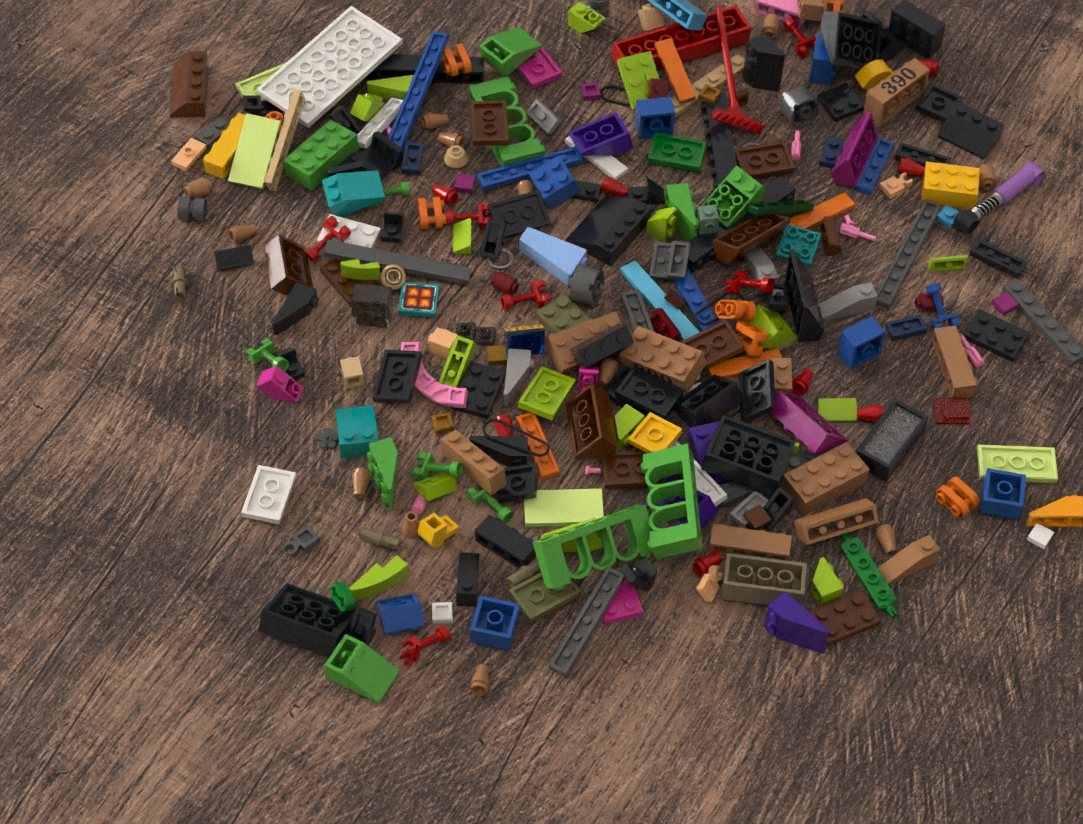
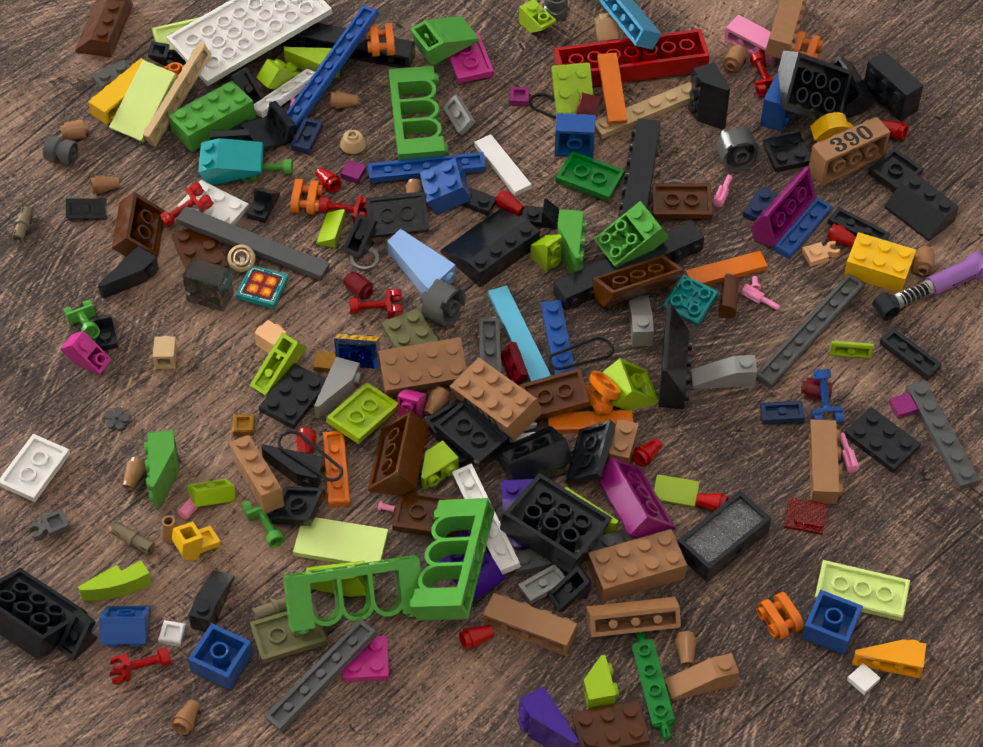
camera: 15 degrees right, 0 degrees up
(188, 154) = (79, 93): light nougat plate -> none
(342, 596) = (70, 594): green beam -> none
(353, 270) = (213, 247): lime slope -> none
(356, 430) = (148, 413): teal slope -> none
(360, 669) = (61, 678): bright green slope -> none
(397, 376) = (210, 365): black plate -> none
(427, 461) = (234, 477): bright green bar -> none
(432, 389) = (237, 376): bright pink tile -> none
(451, 139) = (354, 123): medium nougat cone -> none
(480, 335) = (308, 335): clear smoke slope -> none
(489, 123) = (394, 111): reddish brown plate -> none
(505, 542) = (262, 566): black brick -> none
(601, 345) = (431, 371): black brick -> none
(602, 137) = (511, 147): dark purple slope -> none
(640, 575) = (393, 636): black slope -> none
(654, 434) = (462, 480): yellow plate -> none
(669, 260) = (541, 291): dark grey slope -> none
(674, 298) = (534, 334): reddish brown tile -> none
(708, 219) = (593, 254): sand green brick -> none
(708, 585) = (469, 660): light nougat plate -> none
(709, 94) = (641, 120): pearl gold tile -> none
(734, 115) = (662, 146): red piece -> none
(735, 309) = (593, 358): orange brick -> none
(742, 97) = (675, 130): reddish brown tile -> none
(757, 517) = (545, 595): reddish brown tile -> none
(762, 579) = (528, 665): dark tan brick -> none
(766, 284) = (636, 336): red bar -> none
(778, 298) = (647, 354): black slope -> none
(779, 207) = (679, 255): dark green tile -> none
(861, 342) = (723, 420): blue brick -> none
(947, 216) = (866, 296): dark azure plate -> none

